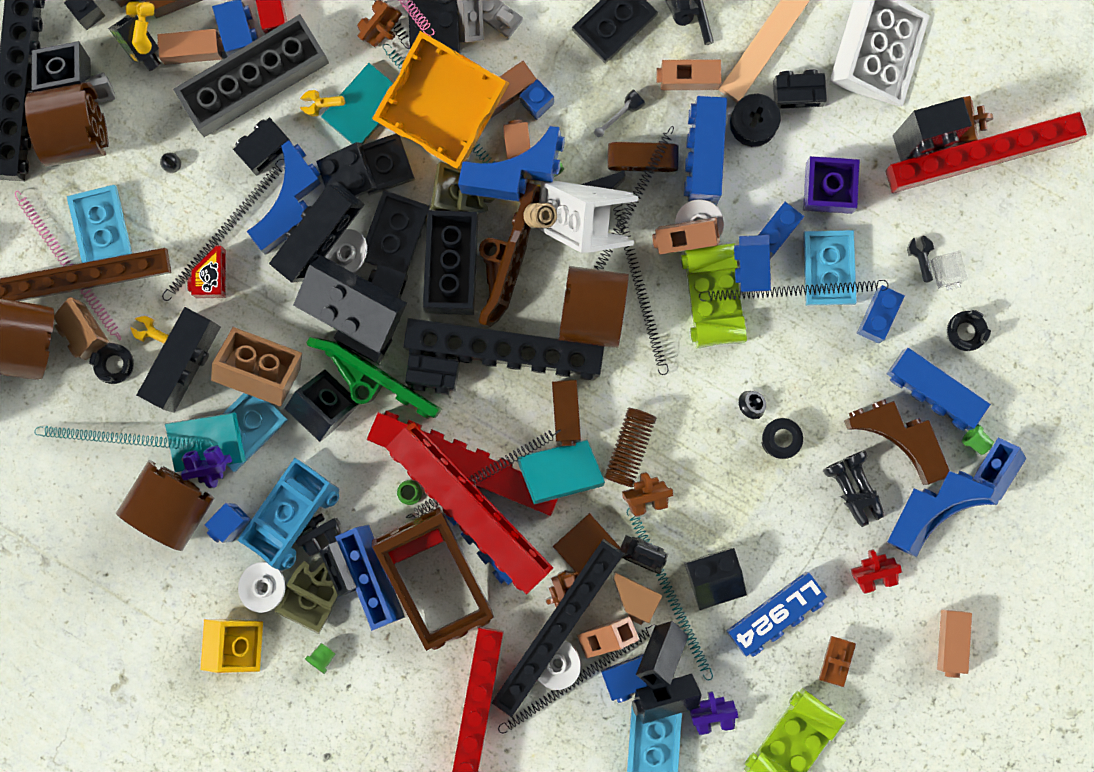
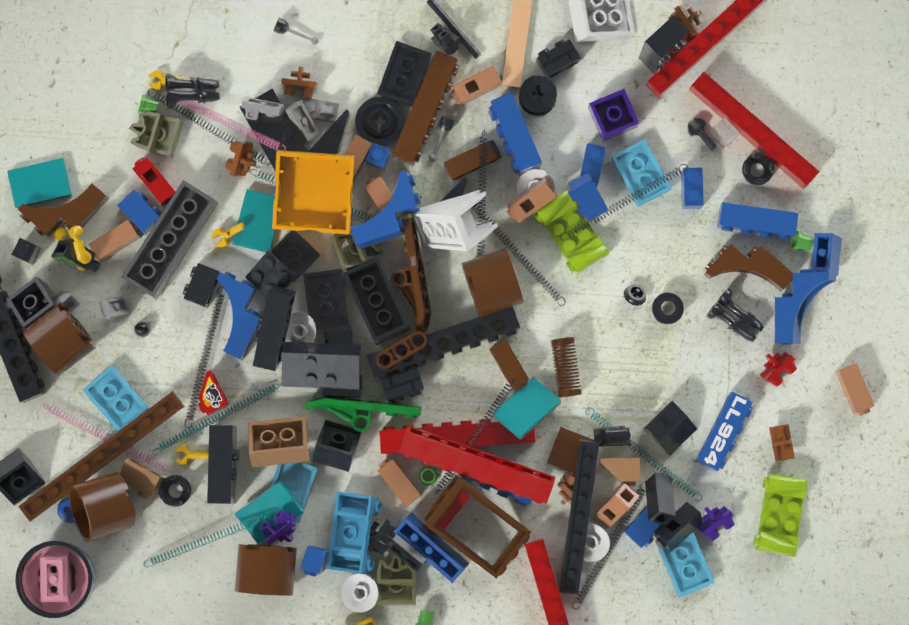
camera: 25 degrees left, 0 degrees up
(149, 120) = (114, 307): none -> light grey hinge
(202, 305) = (232, 409): none -> teal piece
(370, 482) = (398, 482): none -> nougat brick
(437, 328) = (411, 350): none -> reddish brown beam
(497, 52) = (333, 138): none -> black slope
(534, 215) = (423, 238): tan wheel -> none
(553, 45) = (390, 113): none -> black gear
(618, 71) = (425, 108): none -> reddish brown brick
(647, 491) = (592, 391): dark orange hips -> none
(986, 283) = (754, 130): none -> red brick

